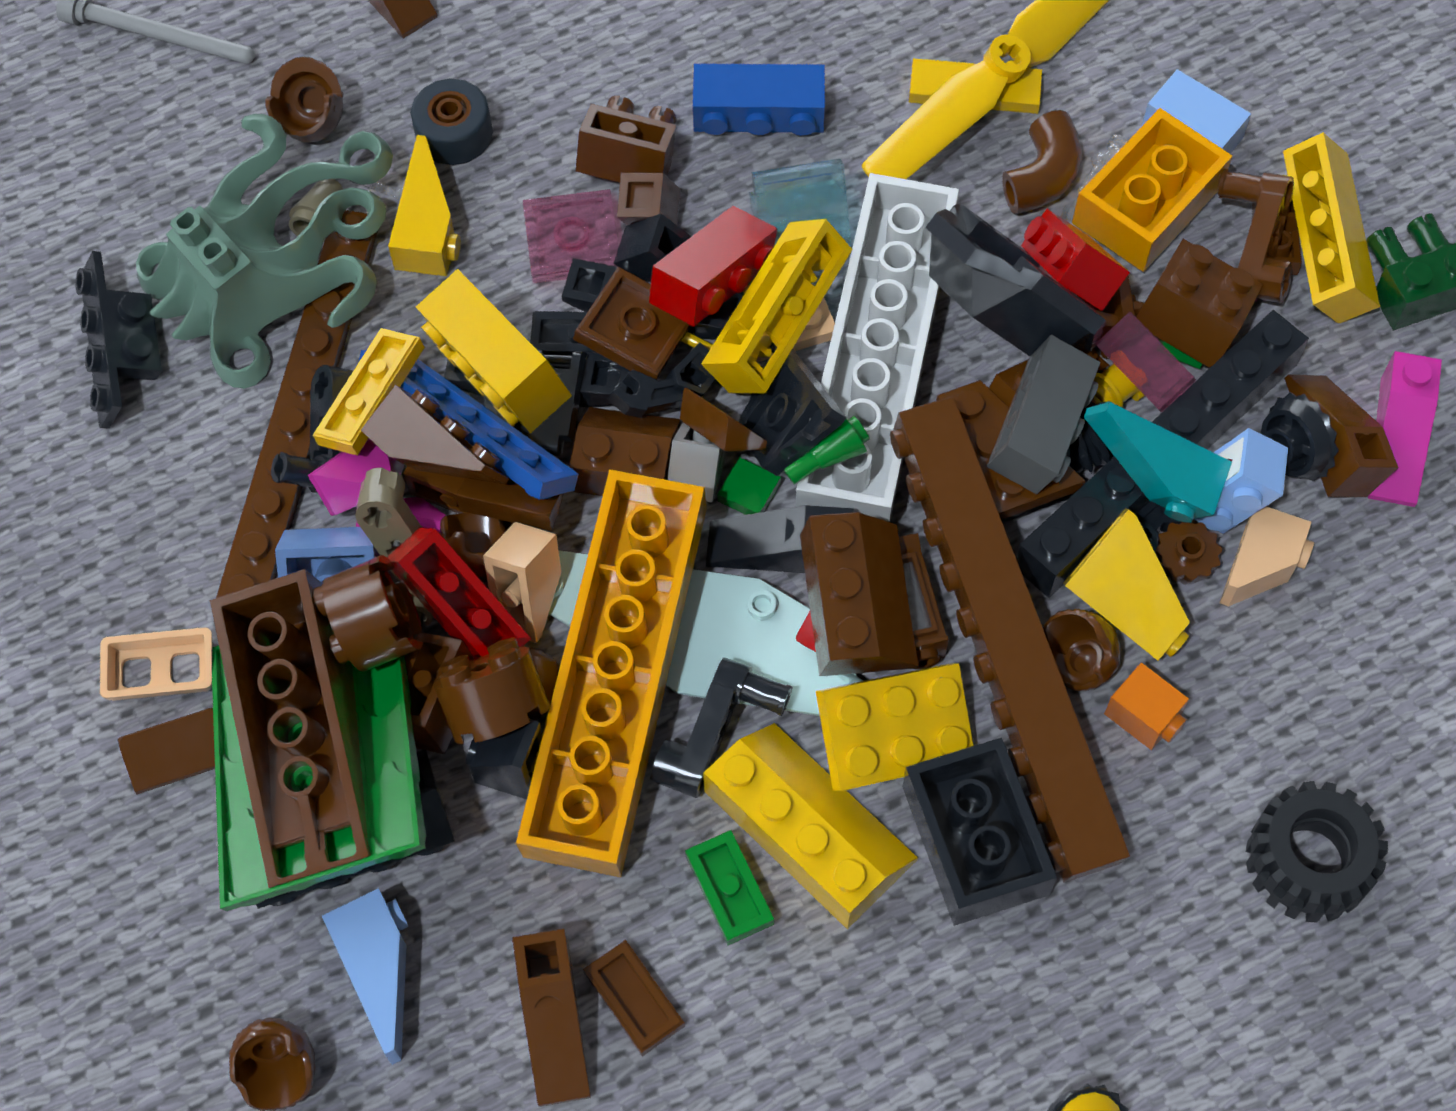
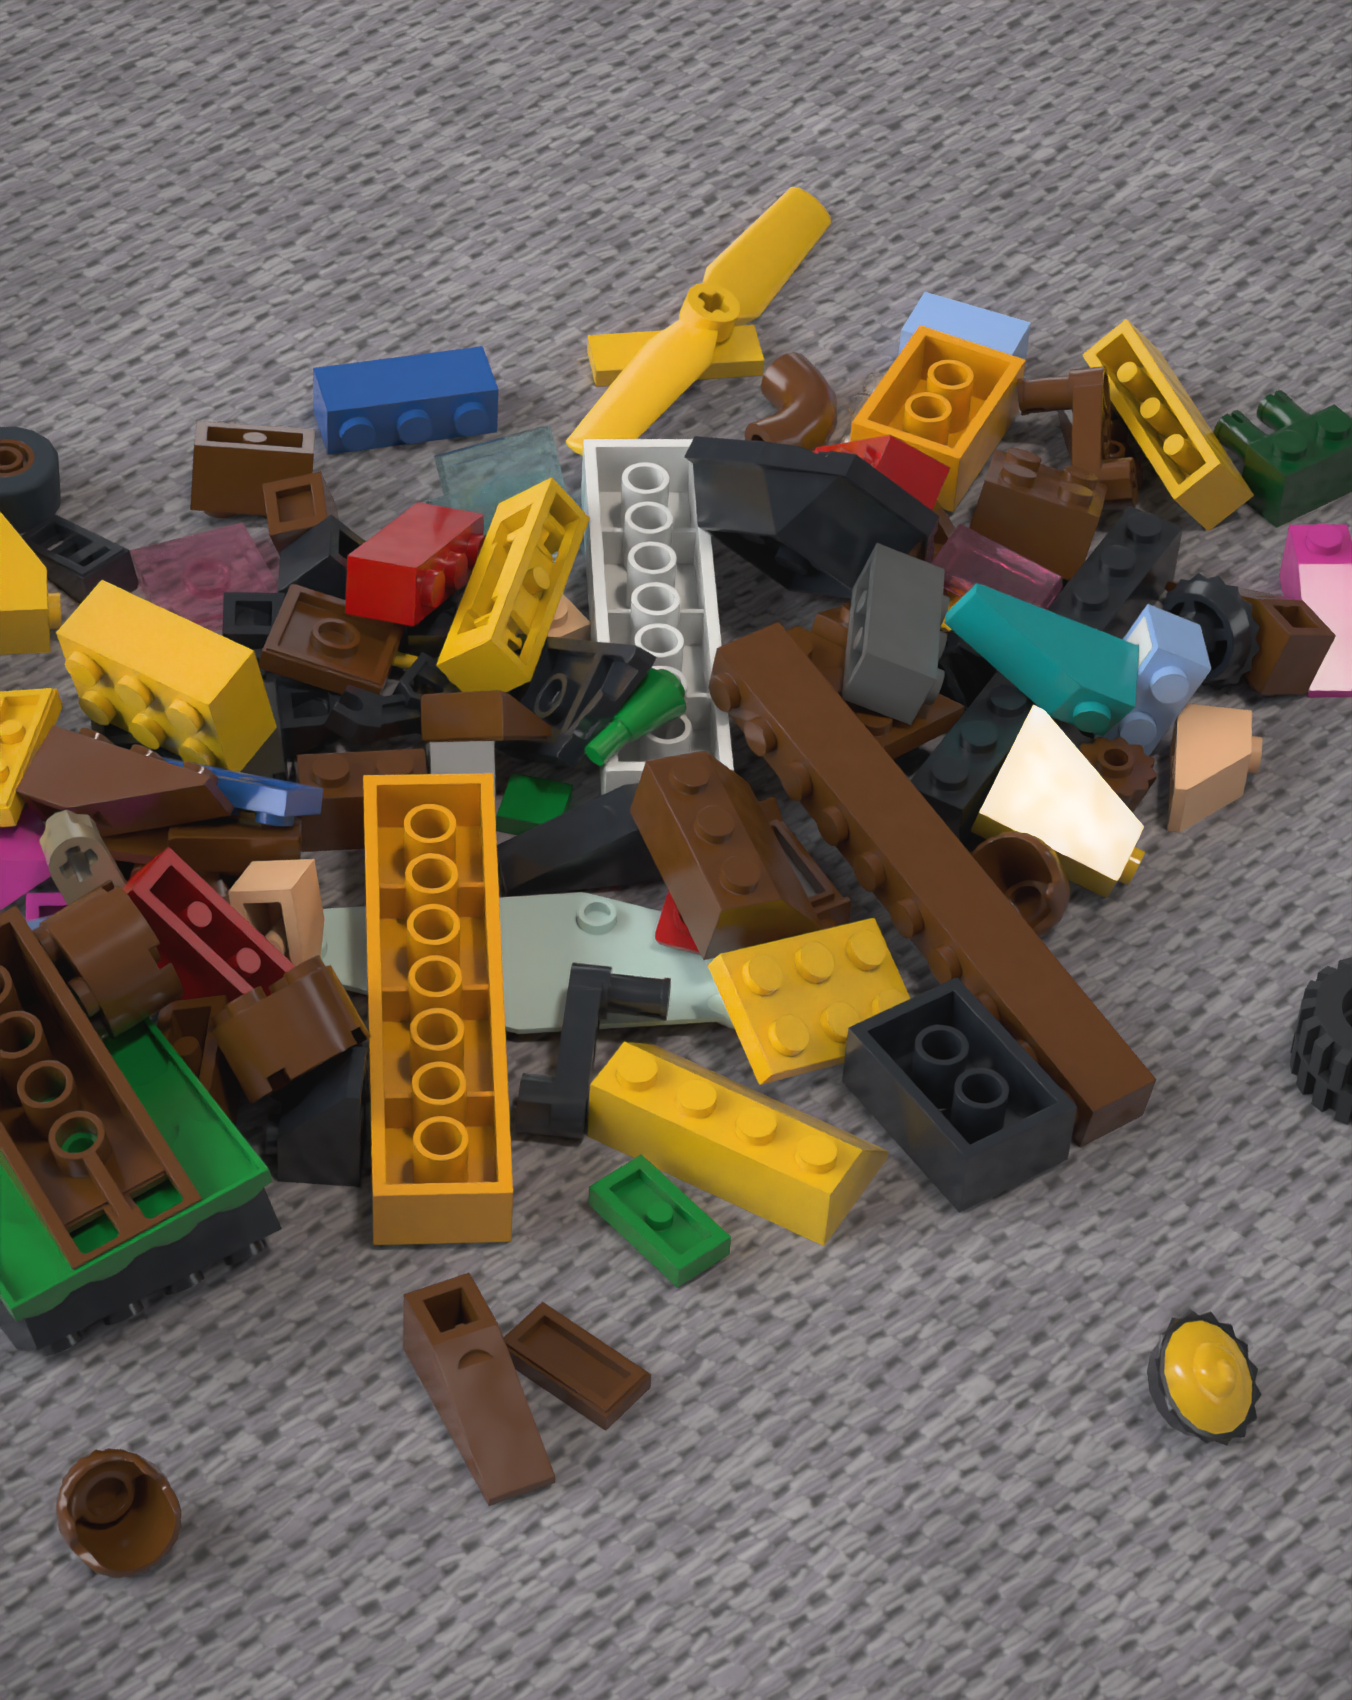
camera: 20 degrees left, 20 degrees down
(375, 960) = (207, 1374): light blue slope -> none
(495, 222) = (81, 558): none -> black slope
(1148, 707) = (1120, 939): orange brick -> none

